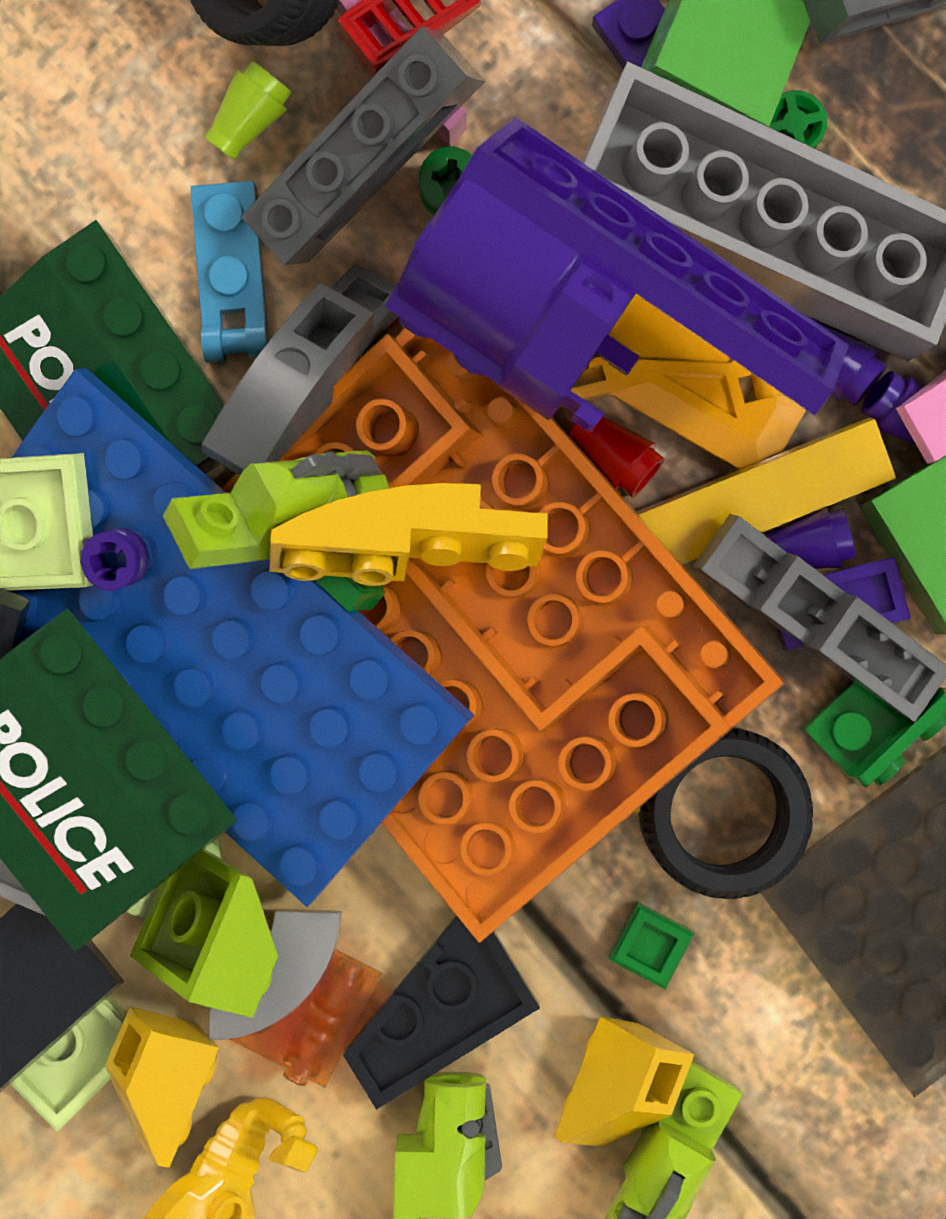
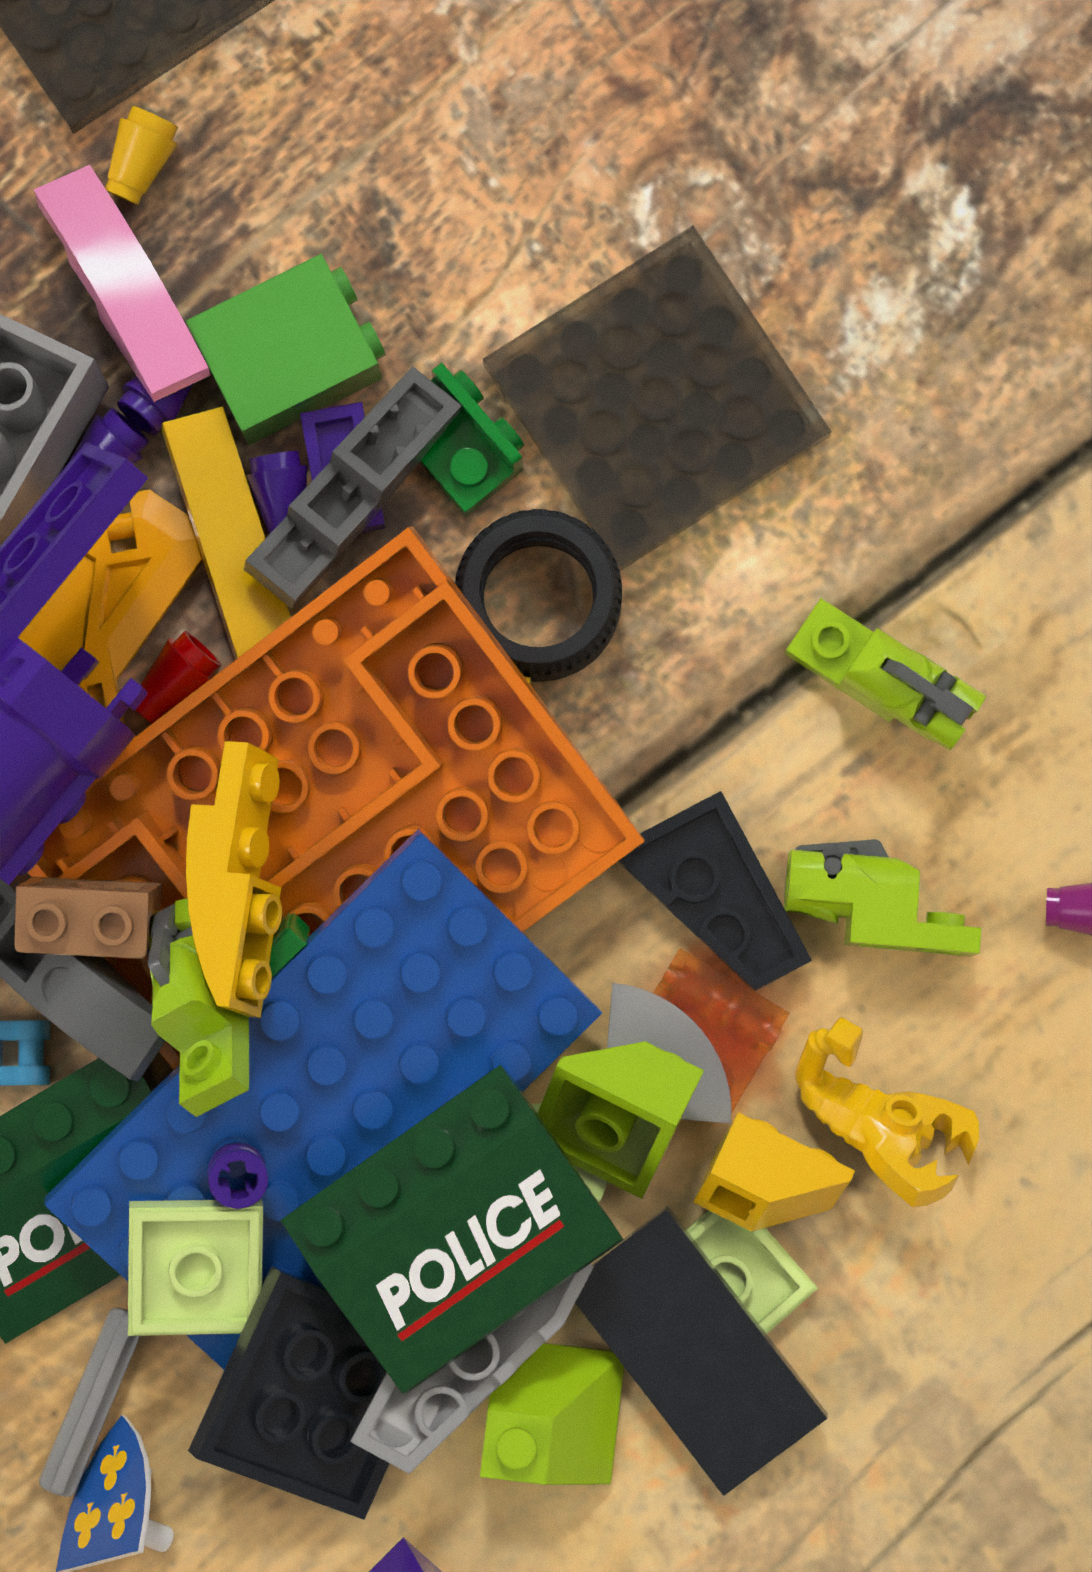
camera: 85 degrees left, 5 degrees down
(363, 385) = (85, 916): none -> medium nougat bracket
(622, 1084) = (802, 715): yellow slope -> none
(650, 945) = (669, 678): green tile -> none

